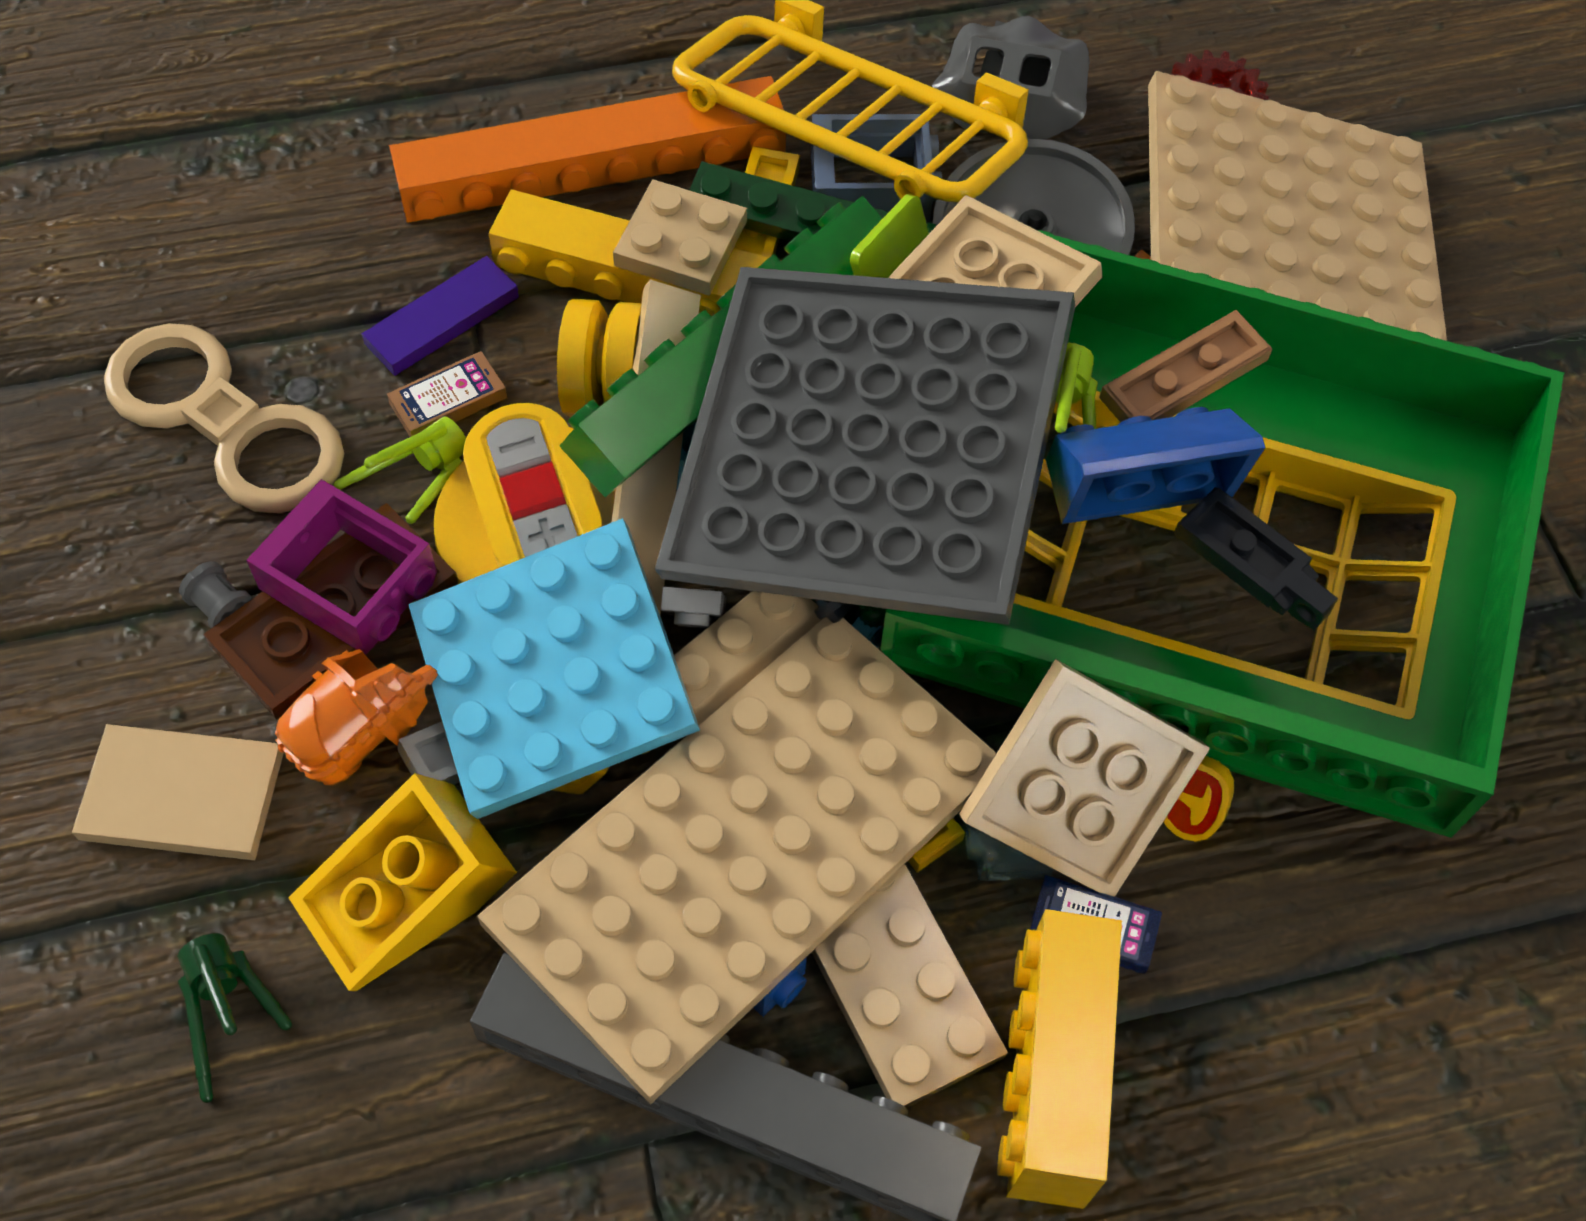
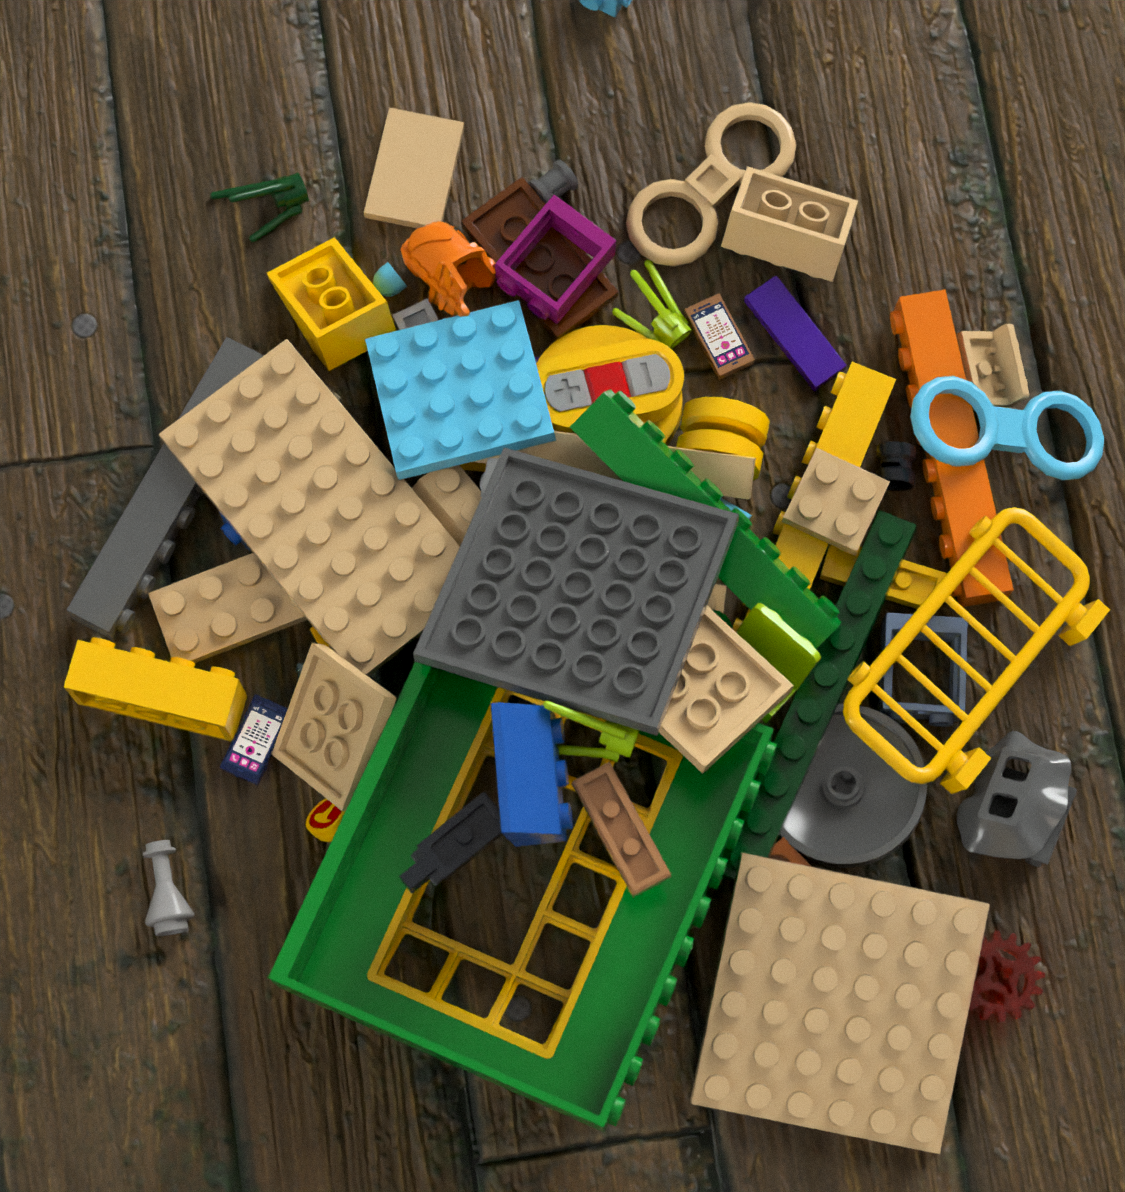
camera: 95 degrees right, 15 degrees up
(291, 314) = (789, 224): none -> tan slope
(361, 803) = (388, 281): none -> hinge
(485, 101) = (994, 364): none -> tan bracket
(569, 88) = (1007, 428): none -> medium azure bar
(608, 195) = (896, 464): none -> black wheel
(1373, 1015) = (168, 908): none -> light grey piece

